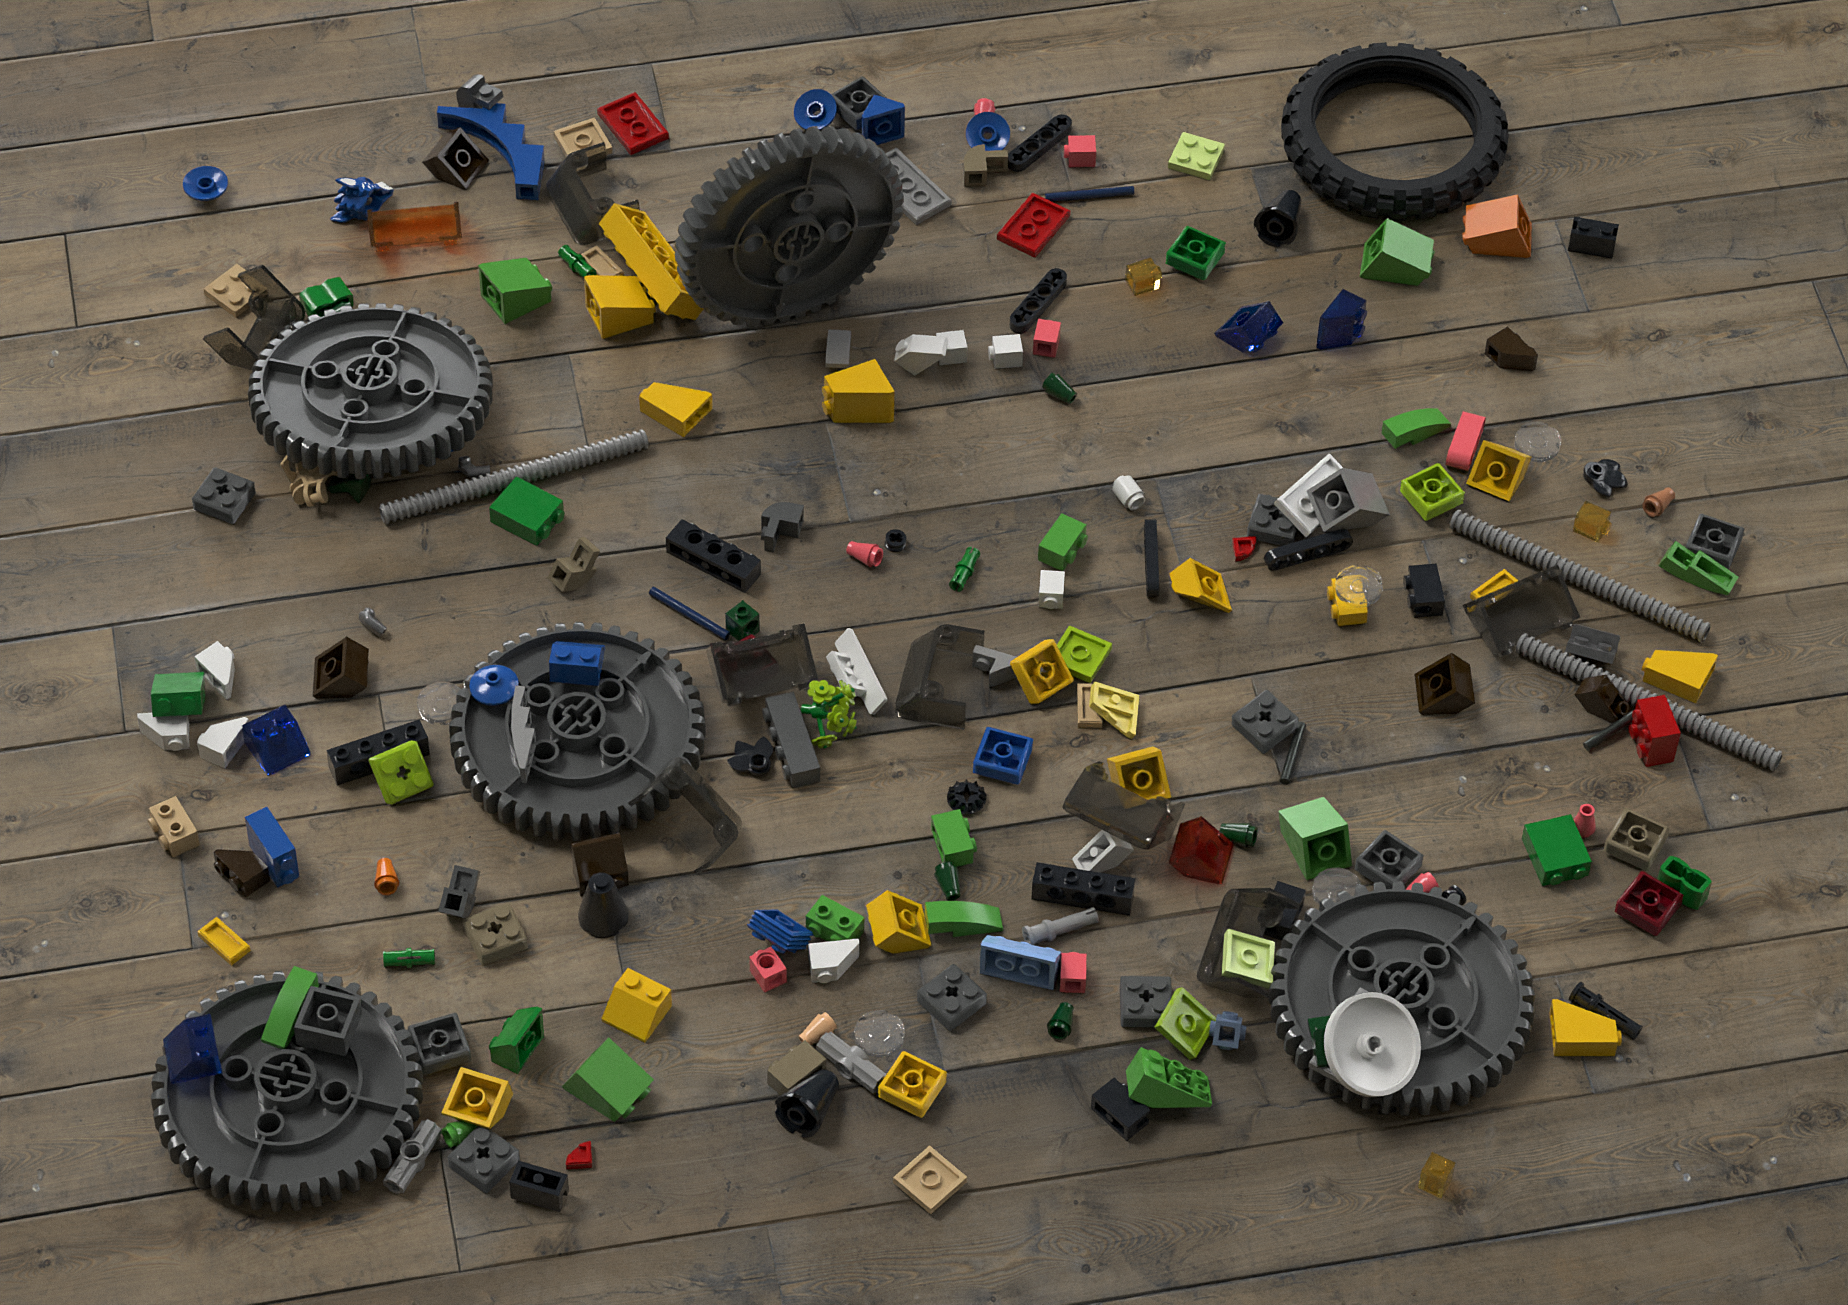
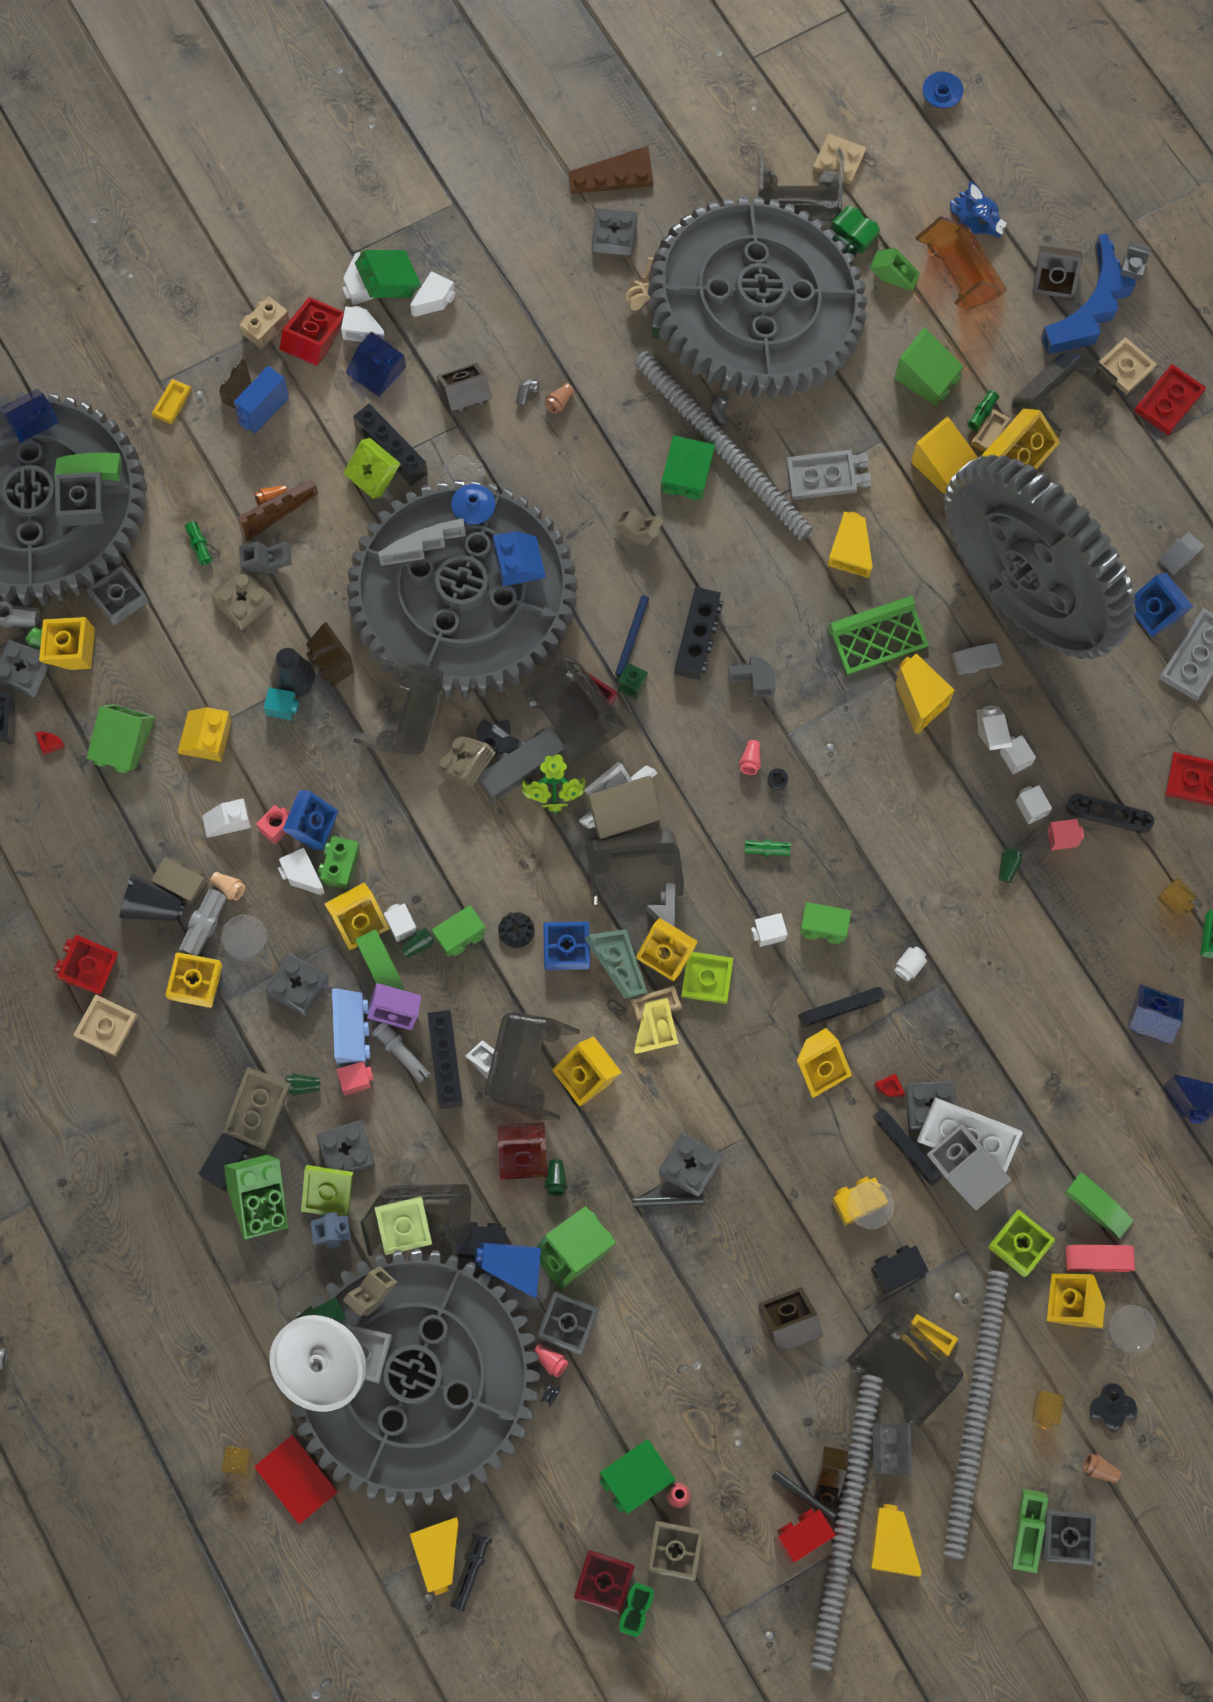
camera: 70 degrees right, 20 degrees up
(152, 477) = (615, 173): none -> reddish brown wing
(207, 786) = (311, 331): none -> red slope
(387, 282) = (894, 269): none -> bright green slope
(396, 597) = (558, 399): none -> nougat cone
(408, 879) = (272, 511): none -> reddish brown wing
(518, 1039) = (137, 652): green slope -> none
(586, 405) = (827, 474): none -> light grey tile
(633, 929) = (281, 704): none -> teal brick
(742, 1010) = (226, 818): none -> white slope
(760, 410) = (872, 617): none -> bright green fence
(776, 768) = (465, 761): none -> dark tan brick
(855, 1179) = (85, 964): none -> red plate
(877, 663) = (624, 807): none -> dark tan tile
(921, 887) = (400, 922): none -> white brick
(1013, 912) = (394, 1006): none -> medium lavender brick
(1037, 717) = (619, 961): none -> sand green wing
(1073, 1062) = (256, 1108): none -> dark tan tile
(1312, 991) = (370, 1292): none -> dark tan brick
(1321, 879) = (512, 1264): none -> blue slope
(1470, 1134) = (296, 1479): none -> red tile

